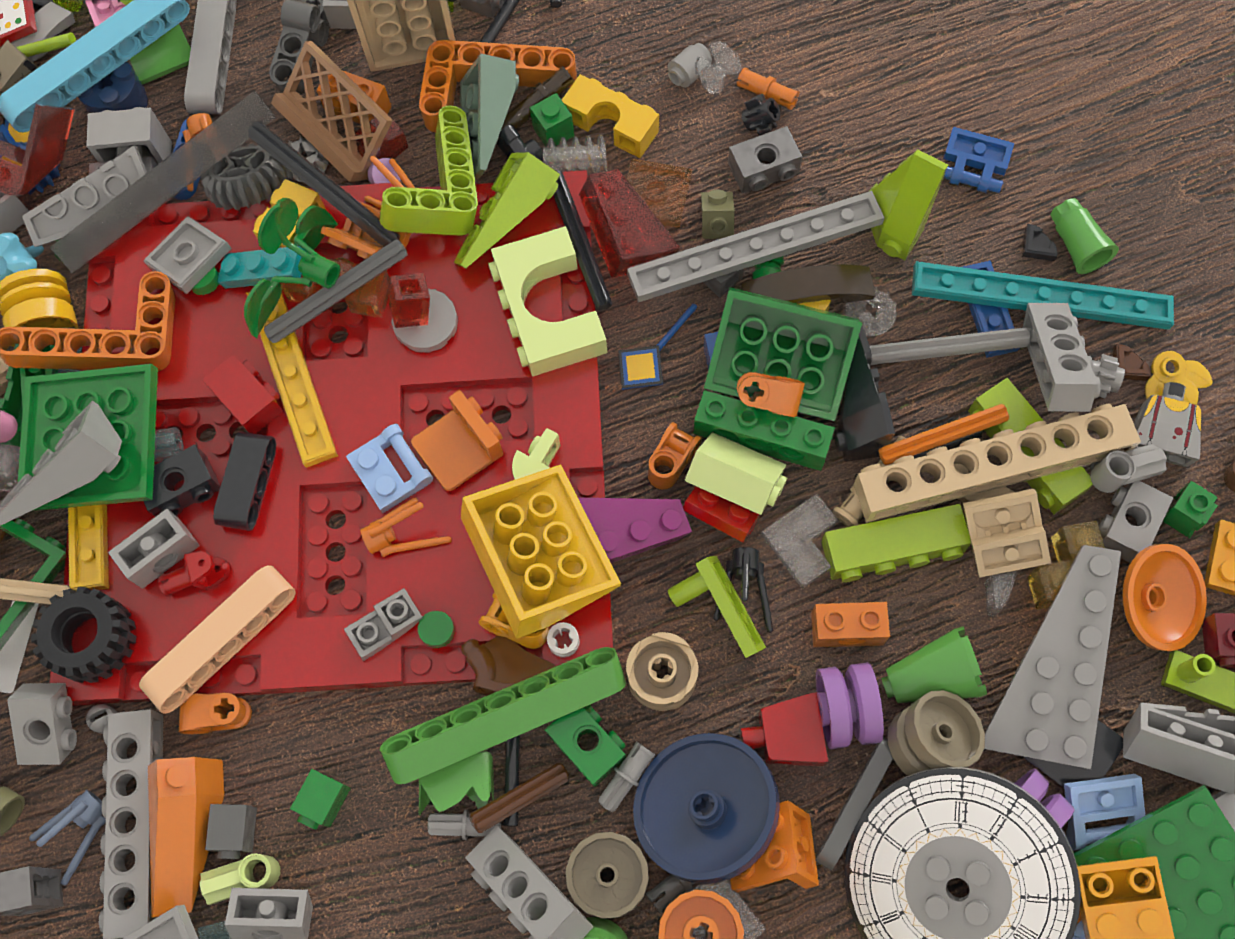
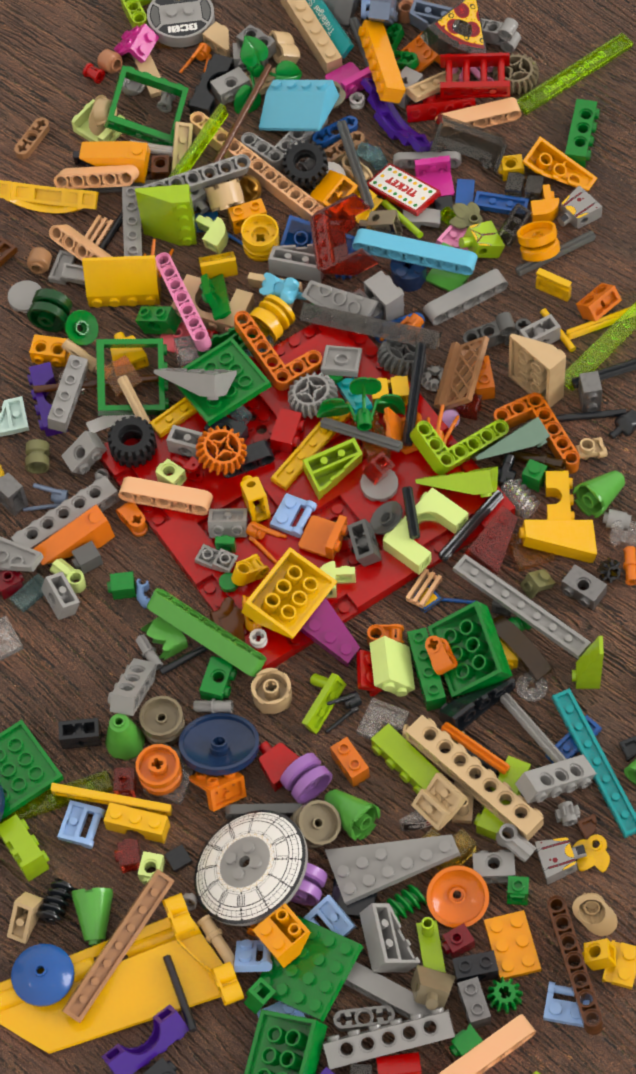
camera: 60 degrees right, 10 degrees down
(172, 603) = (178, 474): none -> yellowish green brick
(211, 306) = (301, 397): none -> light grey gear
(231, 488) = (233, 458): none -> orange gear
(324, 504) = (252, 491): none -> yellow torso
(333, 570) = (227, 522): none -> light grey bracket
(351, 366) = (331, 466): none -> lime wedge
(368, 594) = (225, 542): none -> green plate
(369, 780) = (140, 589): none -> medium blue piece
(441, 587) = (249, 570): none -> yellow piece
(480, 343) = (386, 517): none -> dark grey dish
(513, 392) = (364, 542): none -> dark grey brick
(515, 298) = (411, 514): none -> black axle
(519, 797) = (175, 665): reddish brown axle -> none
(562, 30) = (591, 448): none -> tan plate
(614, 339) = (431, 575): none -> light nougat tile
(639, 62) = (598, 493): none -> bright green cone
(675, 140) = (561, 537): none -> yellow slope
(1128, 680) = (406, 901): none -> green piece

